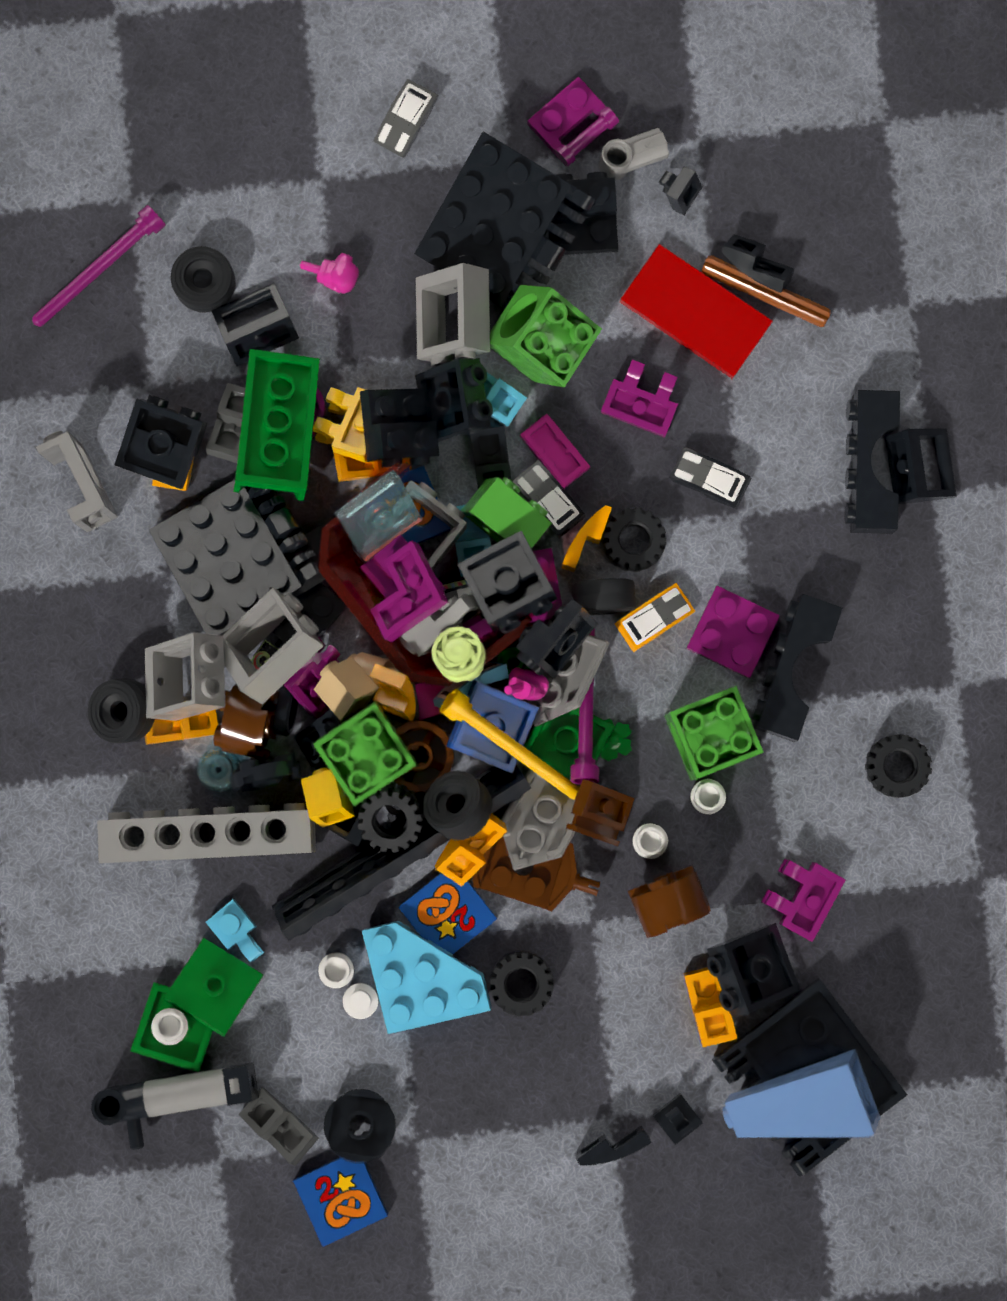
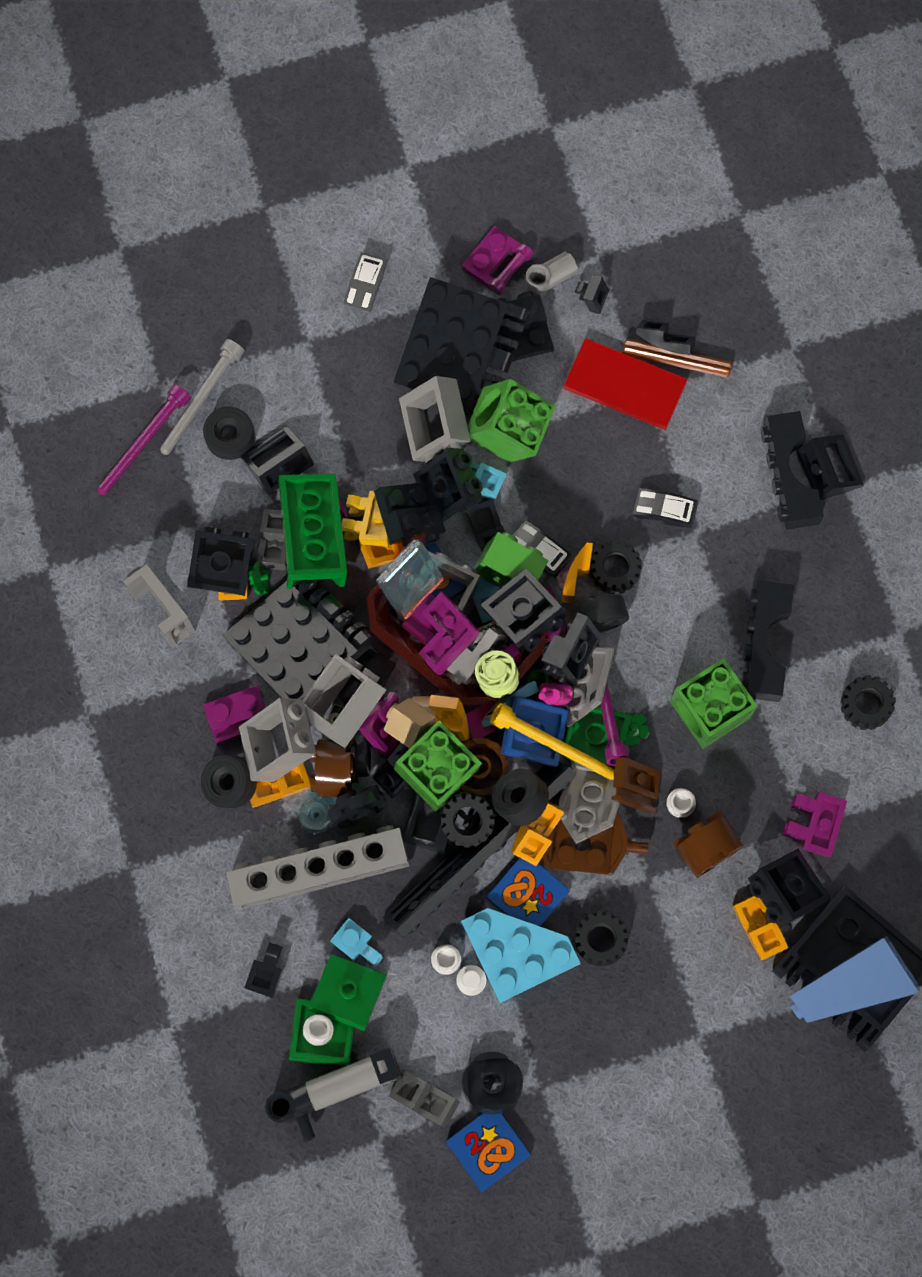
camera: 10 degrees left, 10 degrees down
(122, 946) = (264, 975): none -> black plate
(144, 627) = (232, 711): none -> magenta plate
(204, 469) = (258, 577): none -> green plant
(222, 178) = (229, 354): none -> light grey piece
(326, 798) = (411, 816): yellow brick -> none
(336, 275) = (335, 409): dark pink piece -> none
(554, 451) = (537, 510): dark pink plate -> none
(601, 1150) = (699, 1062): black slope -> none
(638, 406) = (598, 464): magenta plate -> none
(654, 617) = (645, 624): slope -> none
(677, 1119) = (754, 1025): black tile -> none
(708, 796) = (720, 758): white plate -> none
(732, 632) = (710, 624): magenta plate -> none

